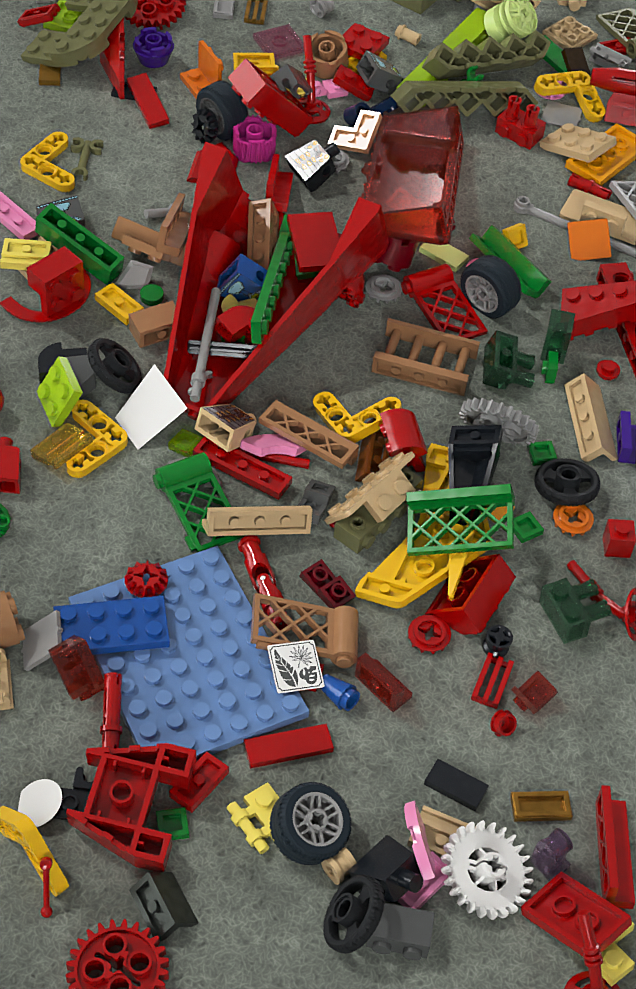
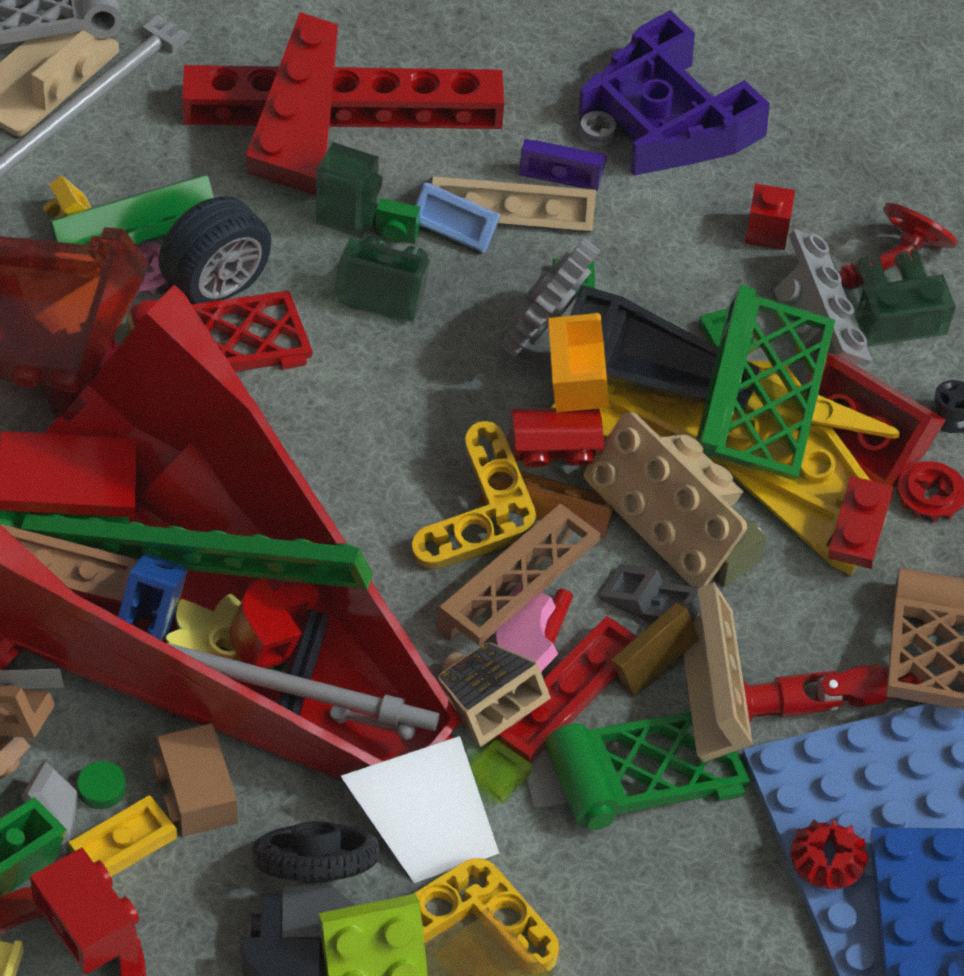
camera: 80 degrees left, 0 degrees up
(268, 494) = (655, 649): none -> pearl gold tile
(329, 589) = (833, 608): dark red slope -> none
(383, 587) = (860, 522): none -> red plate
(422, 373) = (371, 412): medium nougat fence -> none
(440, 425) = (578, 362): none -> light orange panel
(560, 565) = (818, 289): none -> light grey bracket
(563, 391) = (456, 217): none -> light blue tile
(566, 482) = (651, 254): black wheel -> none
(584, 519) = (714, 254): orange gear -> none
(589, 239) = (105, 103): orange sticker -> none
(608, 369) = (405, 154): red plate -> none

